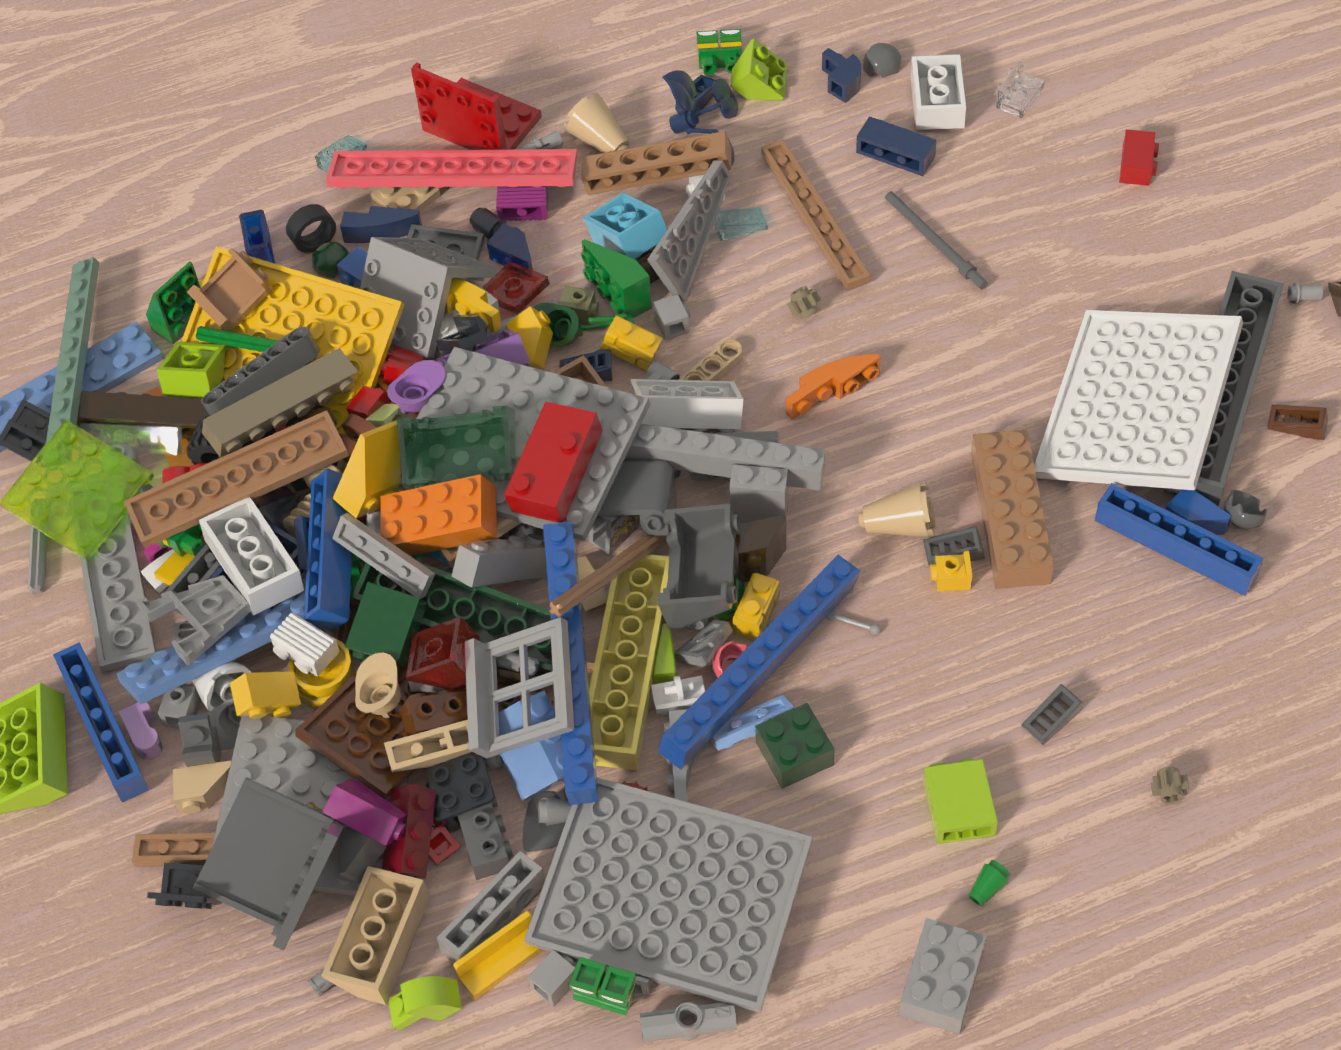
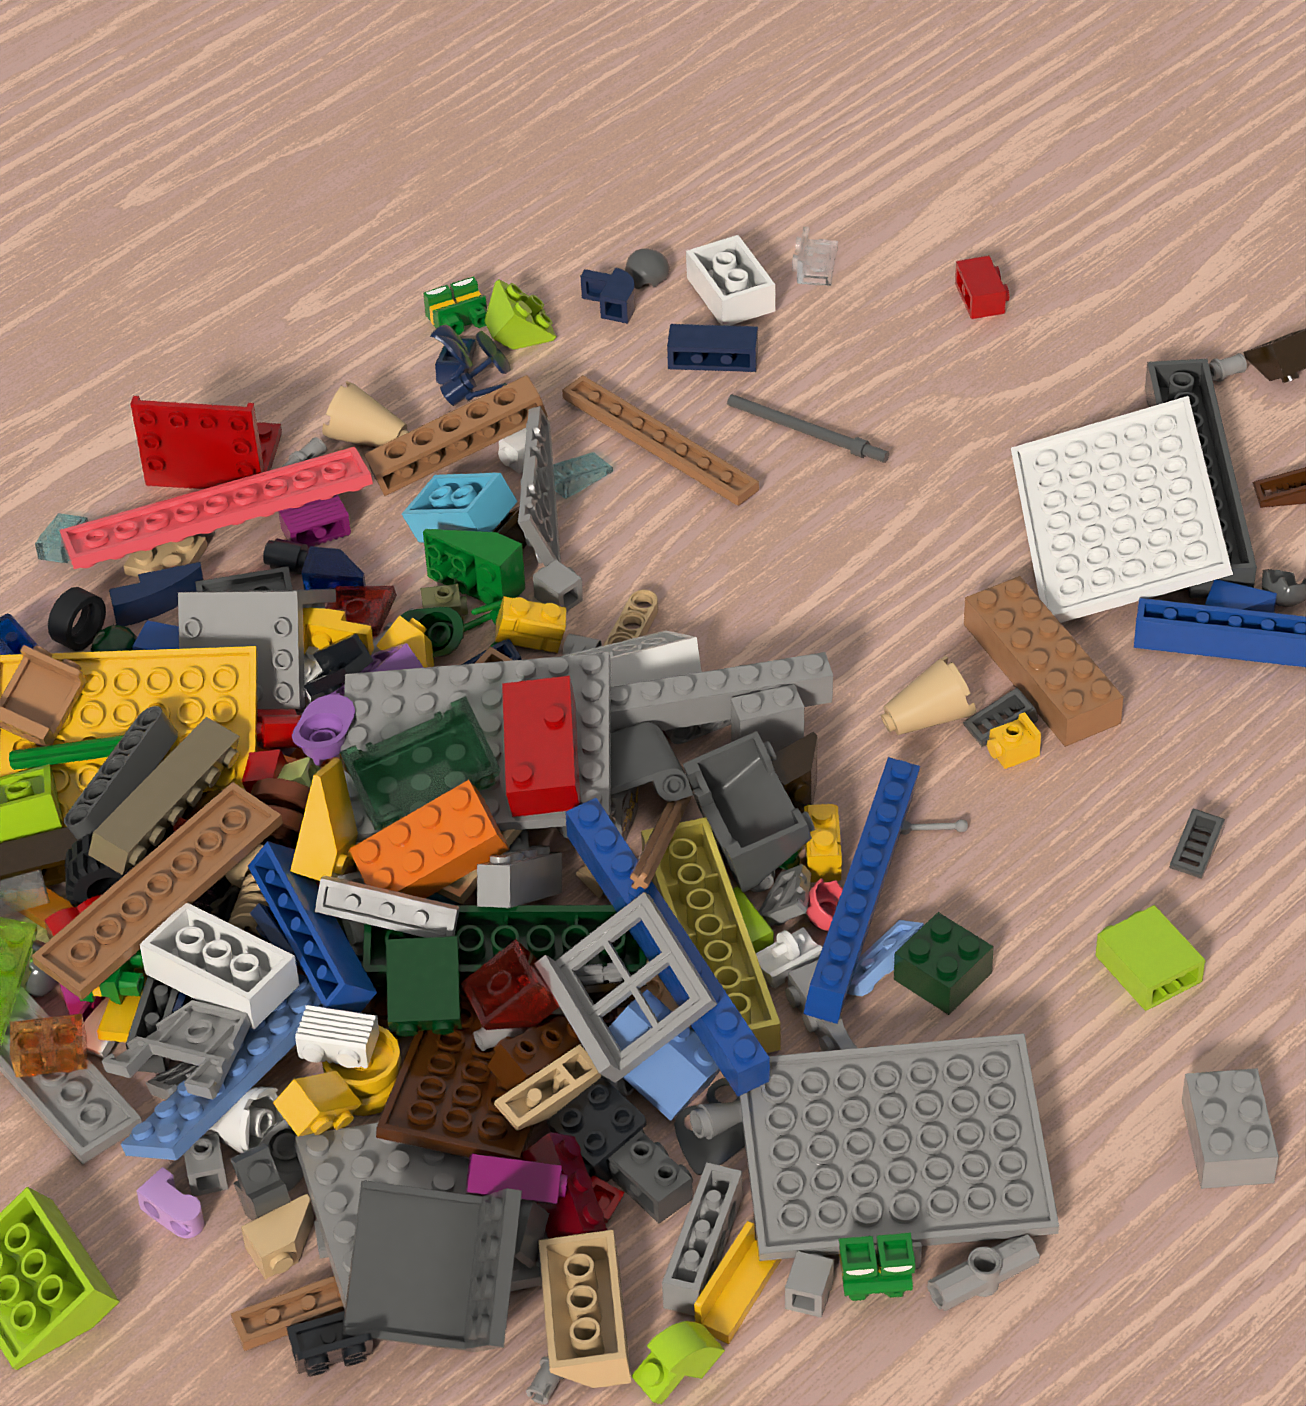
camera: 25 degrees left, 10 degrees down
(101, 722) = (119, 1210): blue brick -> none
(117, 568) = (48, 1045): none -> clear orange brick
(377, 685) = (450, 1047): tan piece -> none
(804, 301) = (700, 528): dark tan gear -> none
(836, 377) = (775, 595): orange slope -> none
(989, 882) = (1224, 1024): green cone -> none

